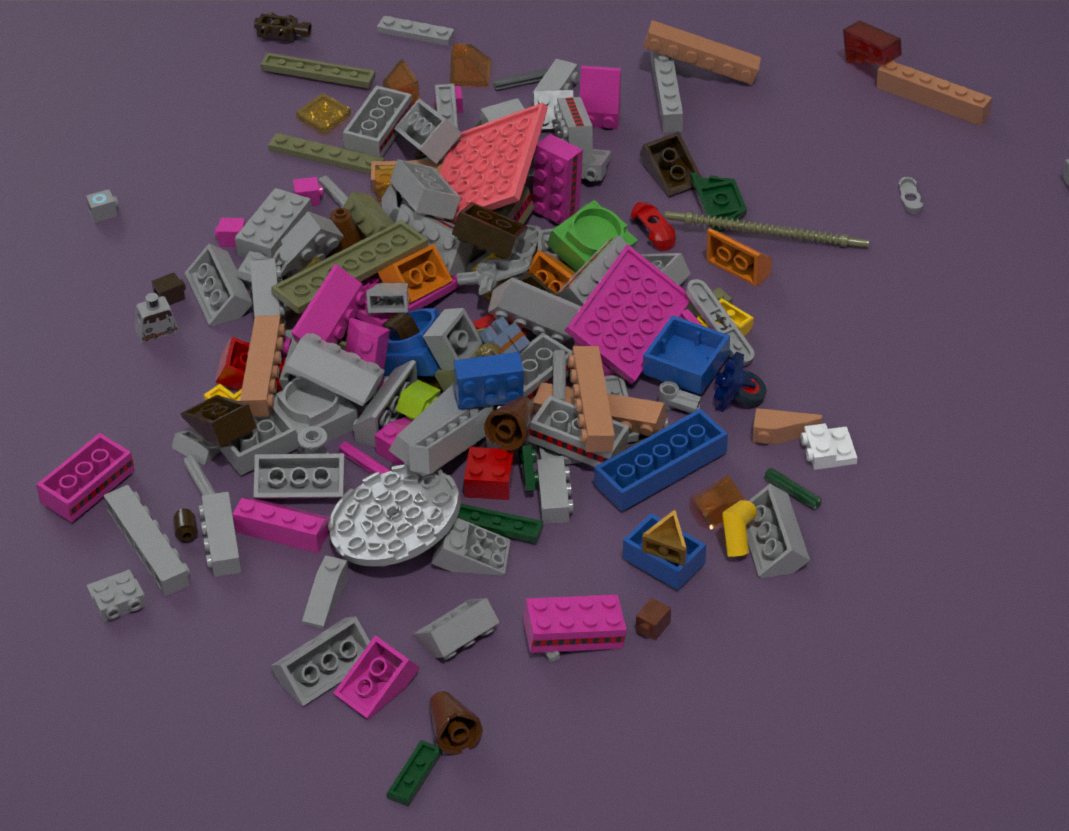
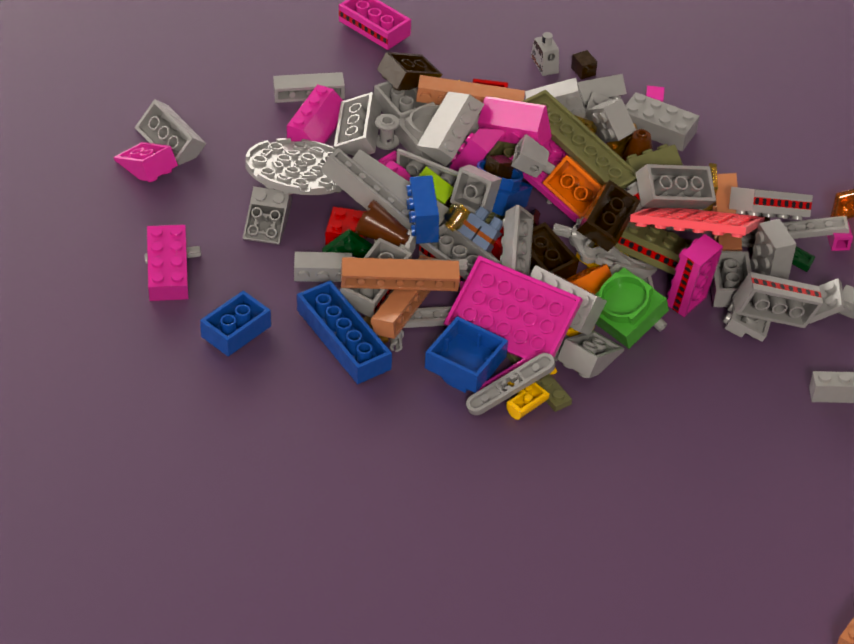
camera: 90 degrees right, 0 degrees up
(102, 205) = (688, 31): light grey brick -> none
(116, 595) = (260, 40): light grey plate -> none
(147, 540) = (309, 51): light grey brick -> none
(185, 525) = (321, 67): dark brown brick -> none
(198, 476) = (365, 82): light grey axle -> none
(309, 188) = (706, 142): dark pink brick -> none
(322, 153) = (764, 157): olive plate -> none
(323, 113) = (817, 157): clear yellow plate -> none
(326, 591) = (238, 137): light grey slope -> none
(333, 190) = (715, 159): light grey axle -> none
(374, 123) = (794, 177): light grey brick -> none
(414, 773) = (54, 179): dark green tile -> none
(453, 723) = (90, 191): reddish brown cone -> none
(457, 628) = (184, 203): light grey slope -> none
(502, 523) = (298, 227): dark green plate -> none
(601, 95) = (830, 328): dark pink slope -> none
(653, 619) = (167, 314): copper brick -> none
(662, 232) = (647, 362): red piece -> none
(666, 540) = (222, 309): pearl gold slope -> none
(669, 163) = (748, 380): dark brown slope -> none
(675, 398) = (416, 362): light grey piece -> none
(716, 499) = (290, 363): clear orange slope -> none
(719, 197) = (694, 410): dark green wing -> none
(735, 524) = (252, 362): yellow brick -> none
(737, 258) = (608, 410): orange slope -> none
(738, 385) = (430, 392): clear blue plate -> none
(775, 535) = (247, 401): light grey slope -> none
(781, 426) = (379, 414): nougat slope -> none
(793, 488) = (303, 422): dark green axle -> none
(828, 446) = (352, 452): white plate -> none
(843, 240) = (643, 477): olive hose -> none
(908, 187) = (722, 568): light grey piece -> none

